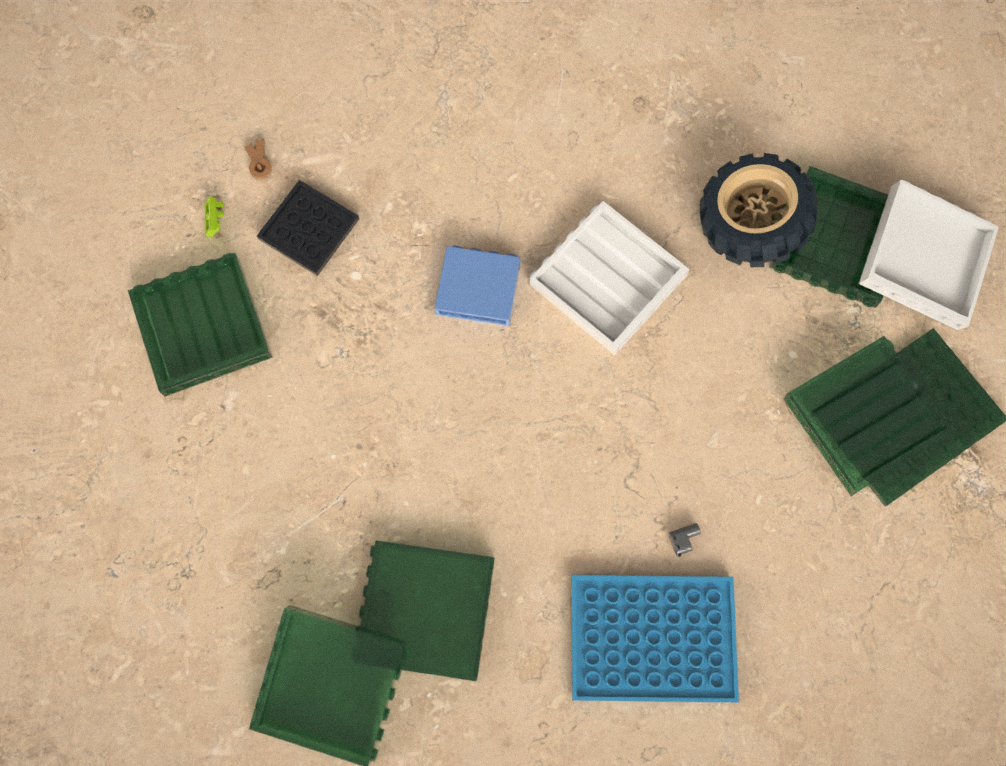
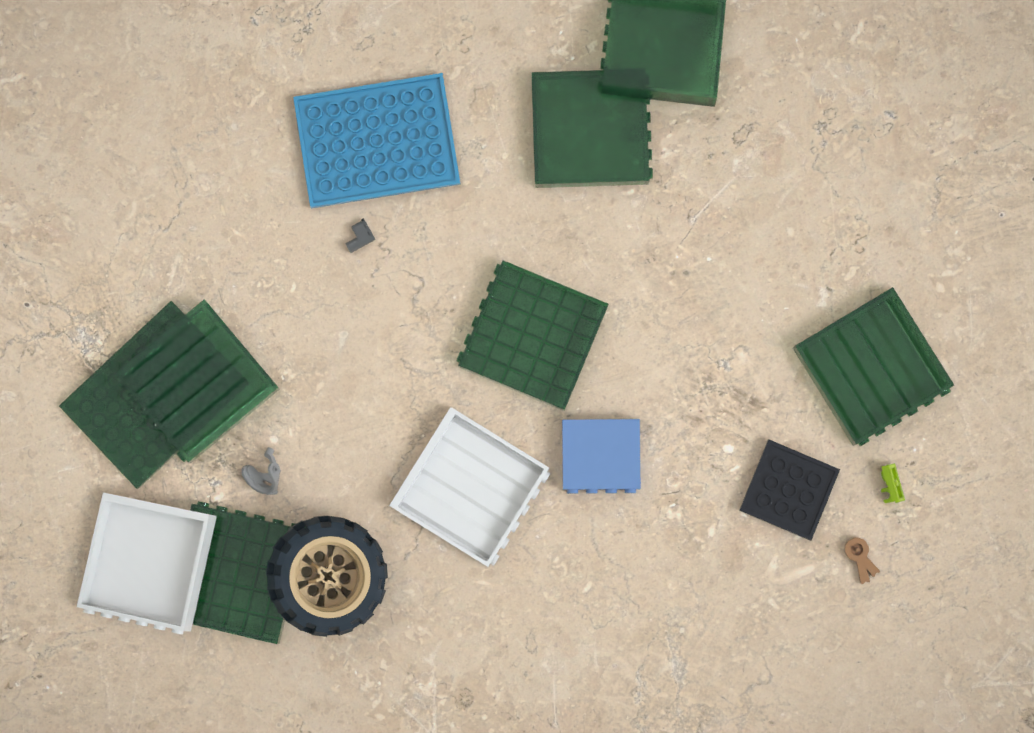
camera: 170 degrees right, 10 degrees up
(523, 408) = (532, 335): none -> clear green panel
(814, 319) = (255, 479): none -> light grey helmet

